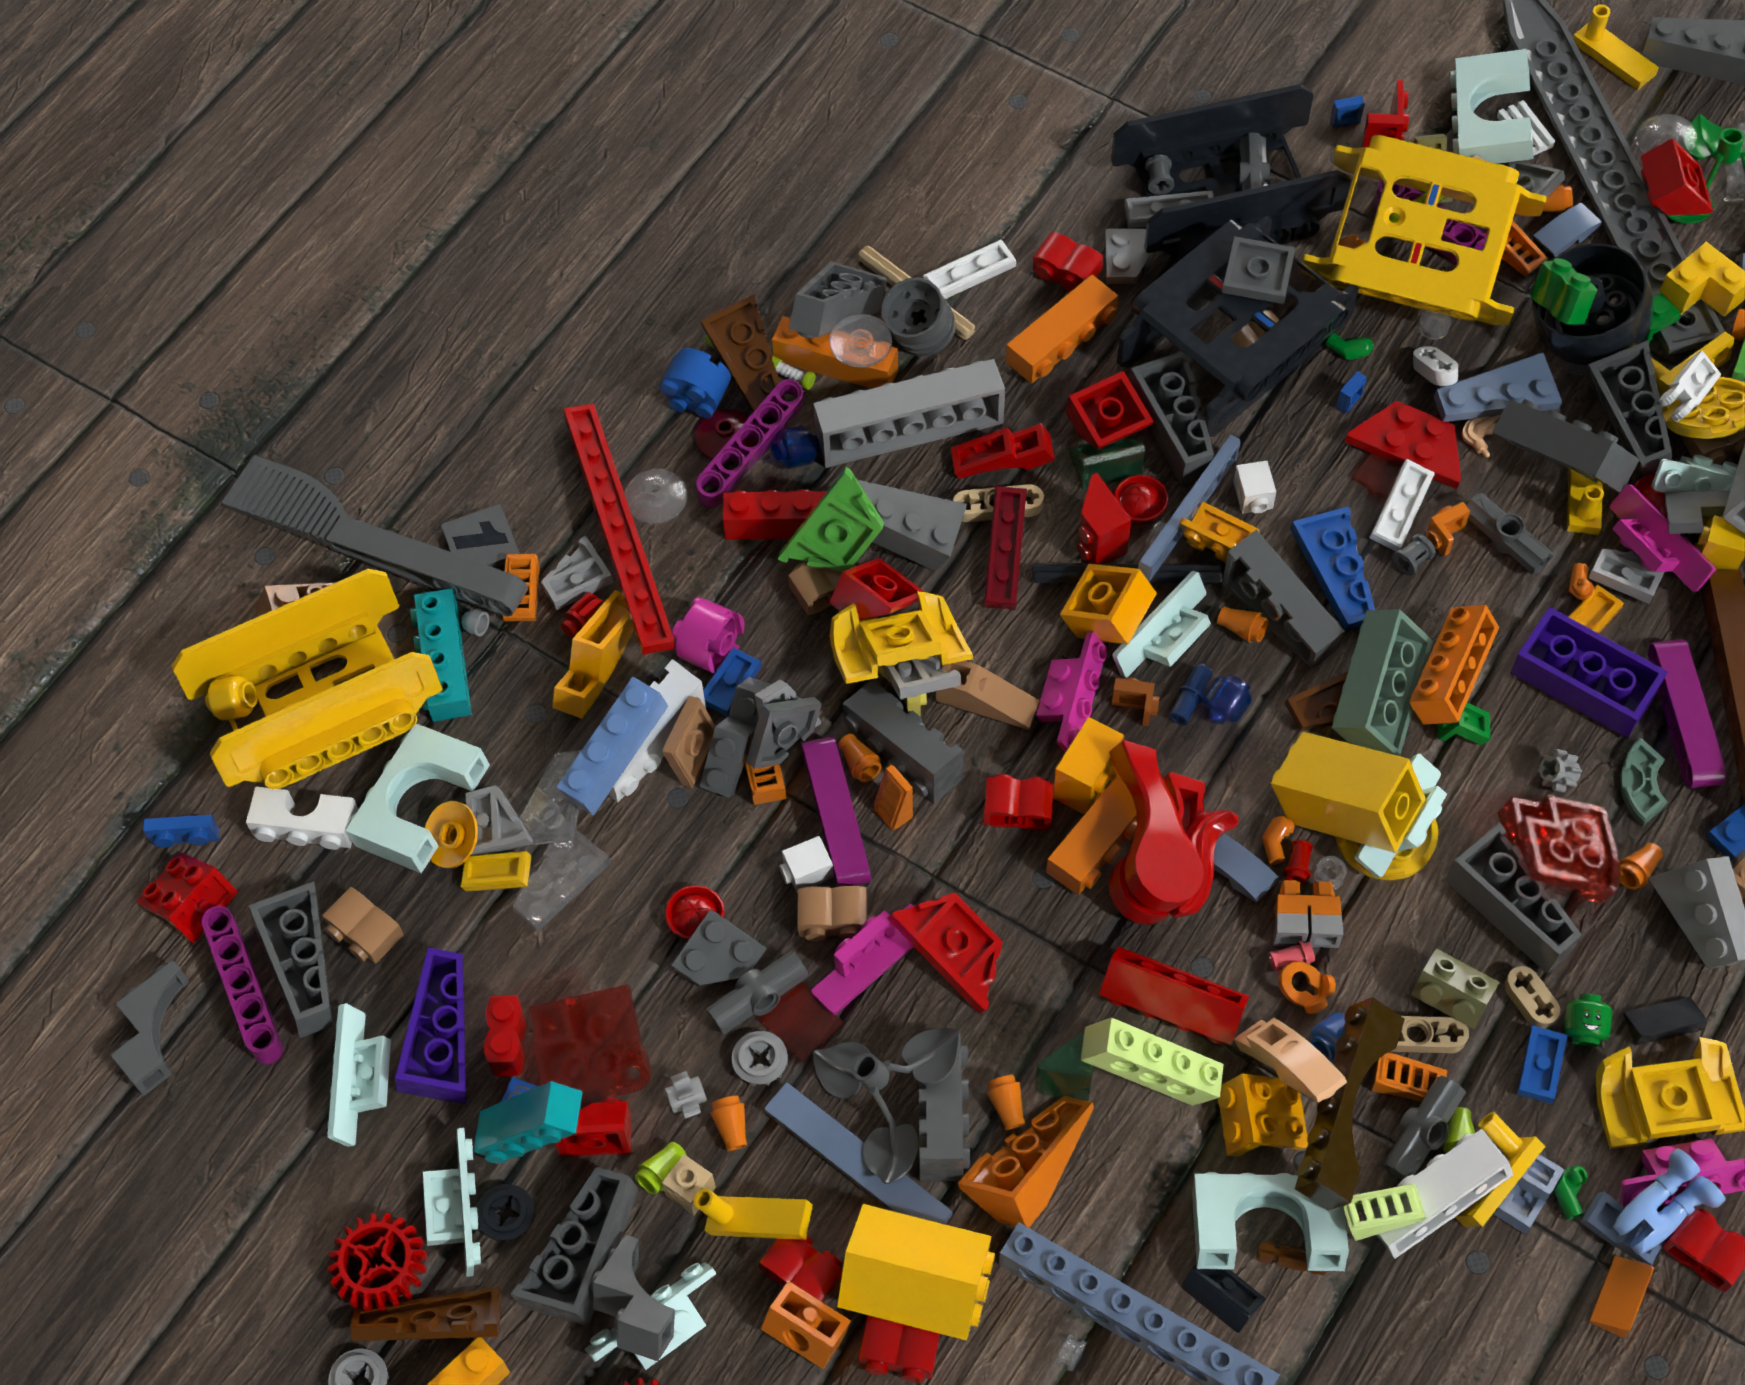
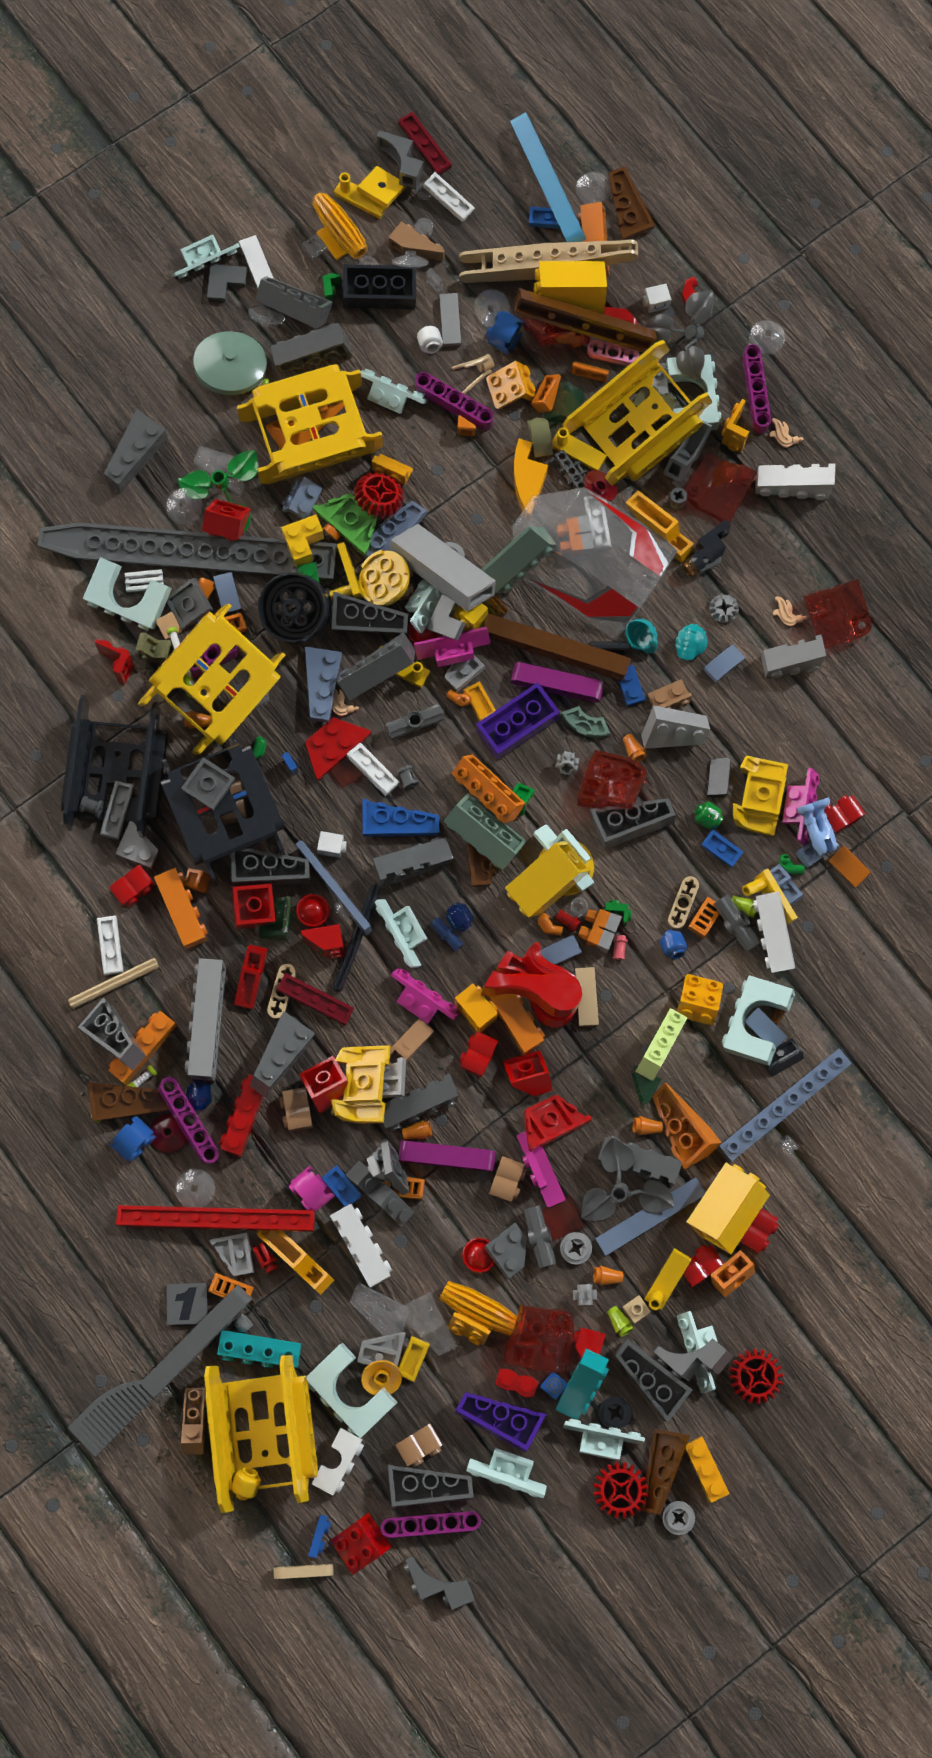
camera: 75 degrees left, 15 degrees up
(122, 828) = (303, 1571): none -> tan beam
(598, 934) = (476, 1313): none -> light orange plate
(612, 746) = (372, 1267): medium blue brick -> none
(689, 742) = (378, 1222): medium nougat tile -> none
(806, 864) = (473, 1183): white brick -> none
(836, 528) = (283, 1092): bright green wing -> none
(858, 331) = (146, 1024): clear dish -> none
(894, 799) = (454, 1122): orange slope -> none
(918, 317) = (138, 1000): dark grey wheel -> none
(1017, 887) = (529, 1073): none -> red slope
(1108, 603) = (379, 957): light orange brick -> none
(1110, 340) = (196, 880): none -> orange slope
(1136, 694) = (434, 965): dark orange bracket -> none
(1174, 996) = (622, 1018): red brick -> none
(1187, 934) = (588, 1006): none -> tan tile
(1215, 530) = (356, 877): light orange bracket -> none
(1244, 623) = (415, 887): orange cone -> none
(1253, 164) = (115, 752): dark grey piece -> none
(1260, 1239) = (765, 1027): none -> sand blue slope
(1292, 1057) = (683, 973): light nougat slope -> none
(1323, 985) = (640, 938): orange piece -> none
(1330, 1162) = (745, 977): dark brown arch -> none
(1347, 111) = (90, 677): blue tile -> none
(1355, 932) = (617, 908): none -> green bracket
(1387, 1223) = (777, 979): yellowish green slope -> none
(1435, 366) = (292, 707): white beam -> none
(1444, 524) = (393, 749): orange bracket -> none
(1455, 988) = (669, 873): olive brick -> none
(1535, 995) = (683, 831): tan beam -> none
(1564, 291) = (288, 622): green brick -> none
(1612, 51) = (110, 504): yellow piece -> none
(1691, 385) = (370, 582): white hinge -> none

